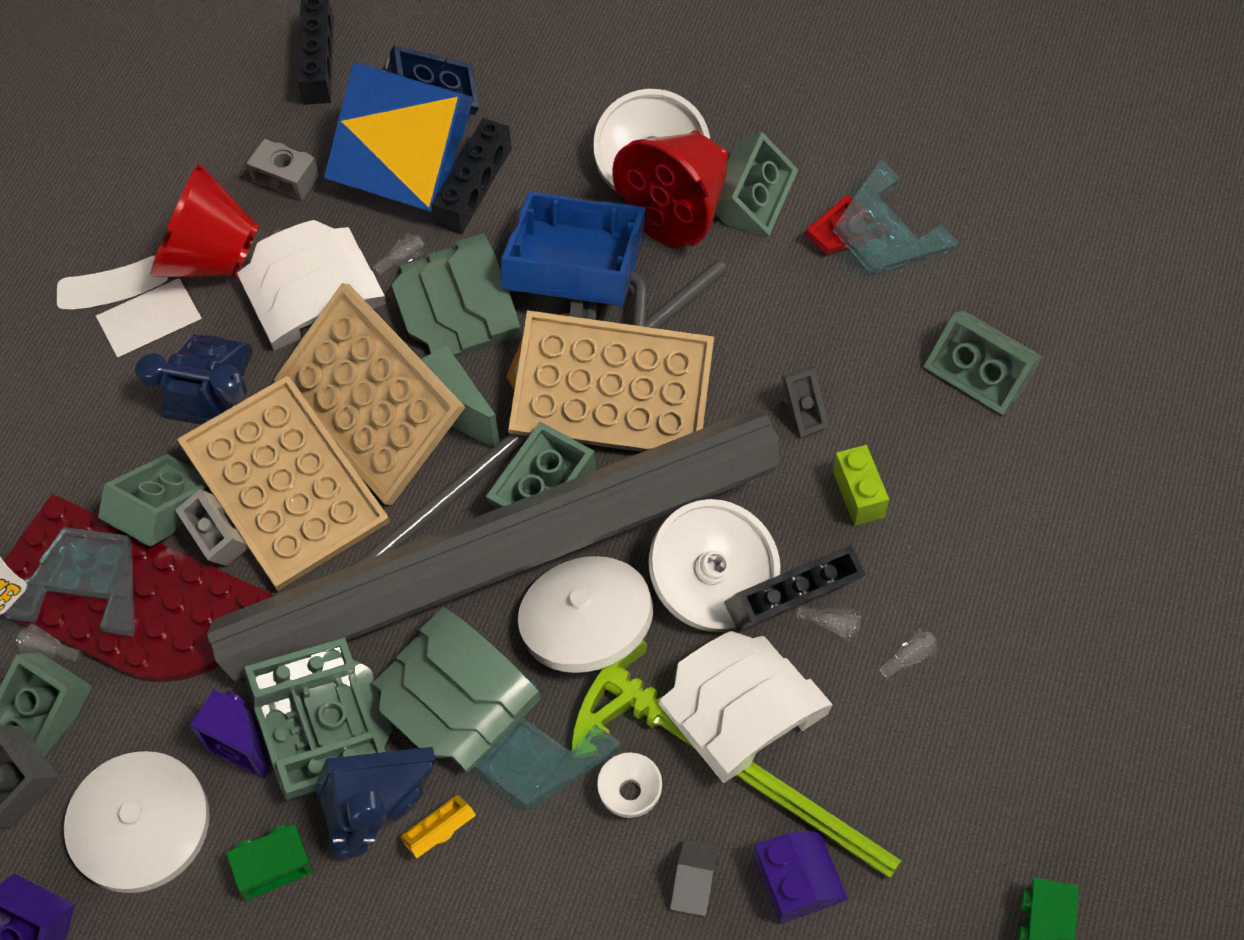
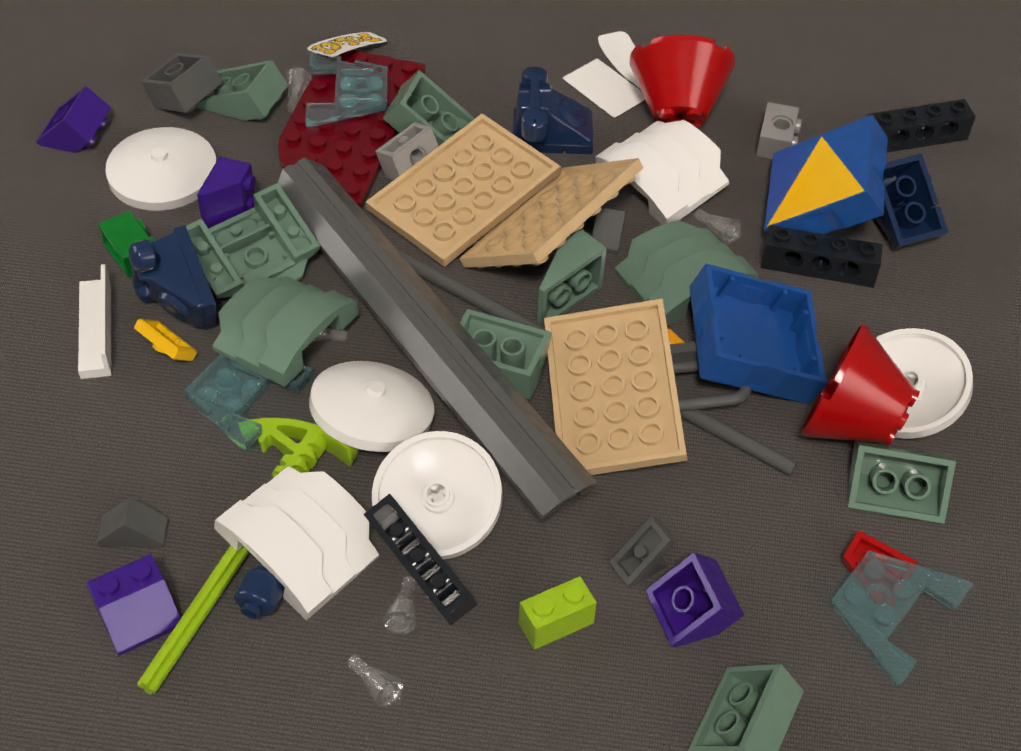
camera: 75 degrees right, 10 degrees down
(391, 907) = (95, 327): none -> white panel
(626, 769) = (205, 453): white piece -> none
(803, 749) = (258, 593): none -> dark blue head
(860, 374) = (694, 601): none -> dark purple slope

